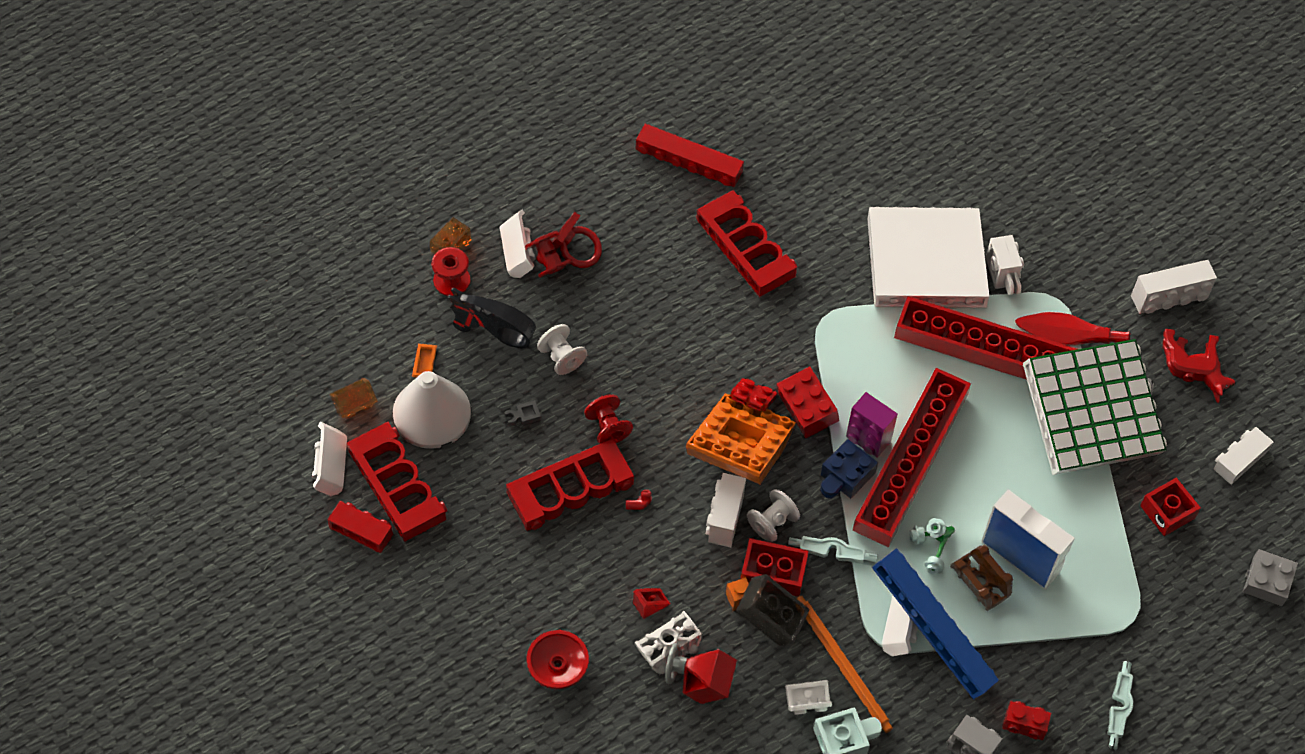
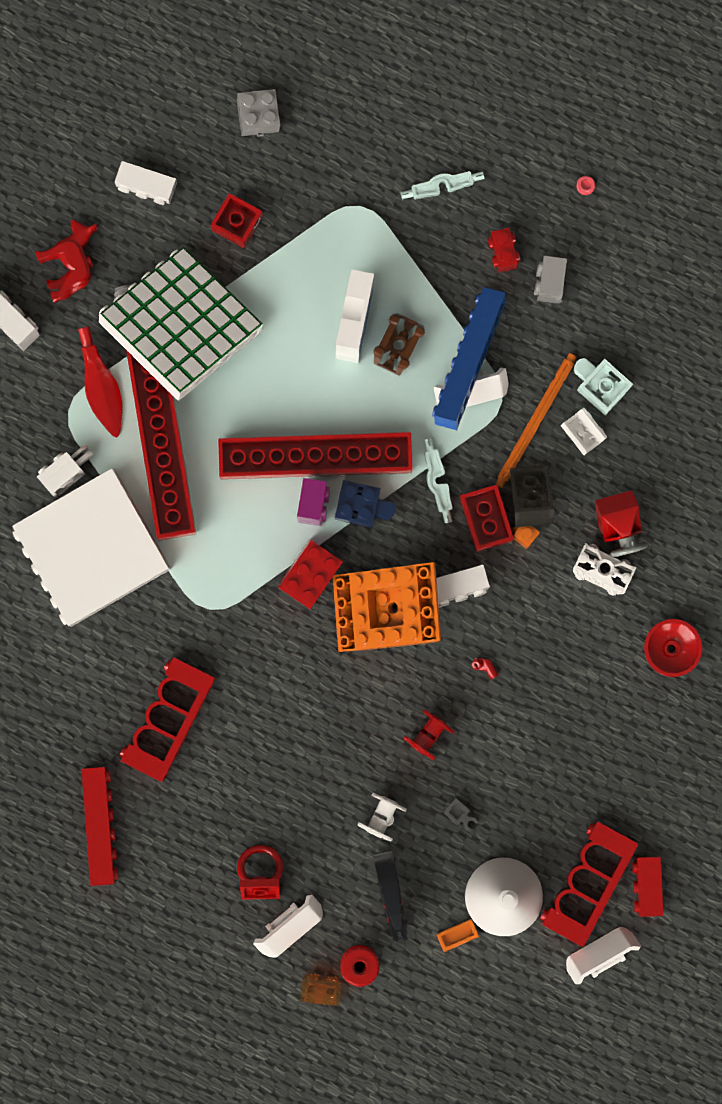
camera: 120 degrees left, 25 degrees up
(353, 398) = (534, 971): clear orange brick -> none
(534, 515) = (544, 762): red fence -> none
(547, 254) = (287, 896): red hose -> none
(649, 601) = (572, 604): red slope -> none
(755, 396) = (329, 625): red plate -> none
(780, 510) = (440, 542): white hose -> none
(936, 530) = (386, 397): light aqua plant -> none

